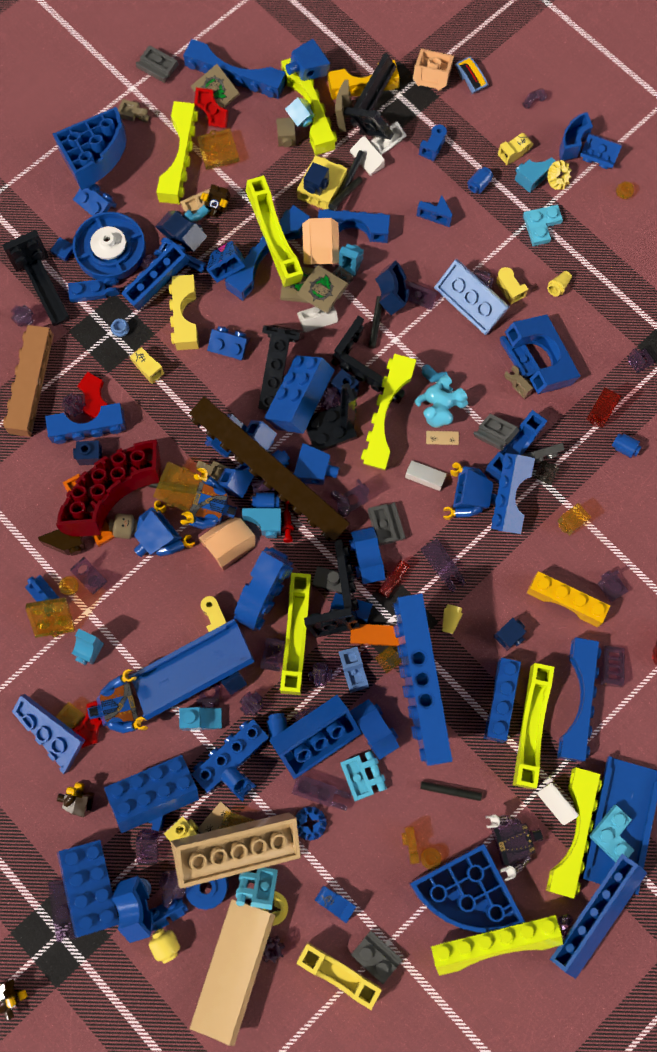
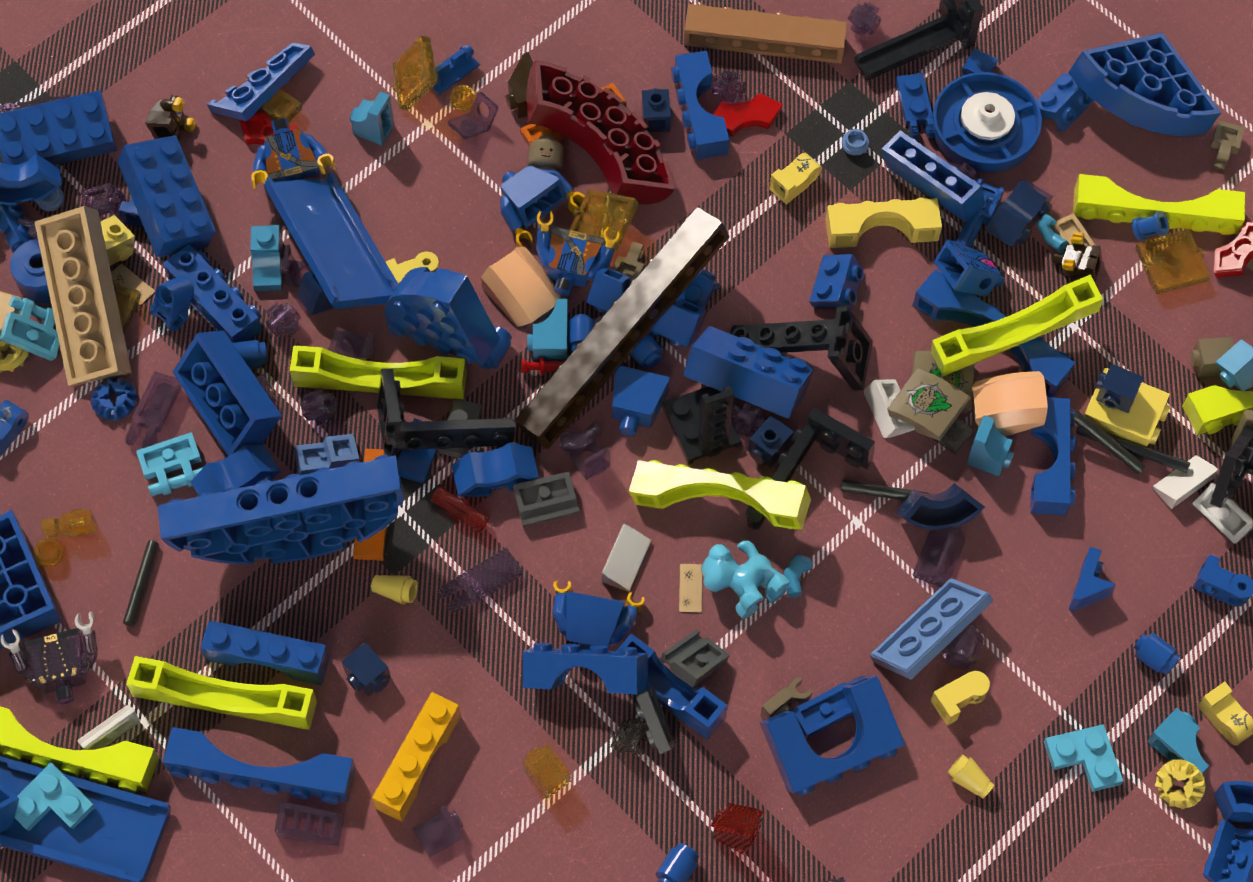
camera: 90 degrees right, 10 degrees down
(196, 155) = (1150, 226): none -> blue bush

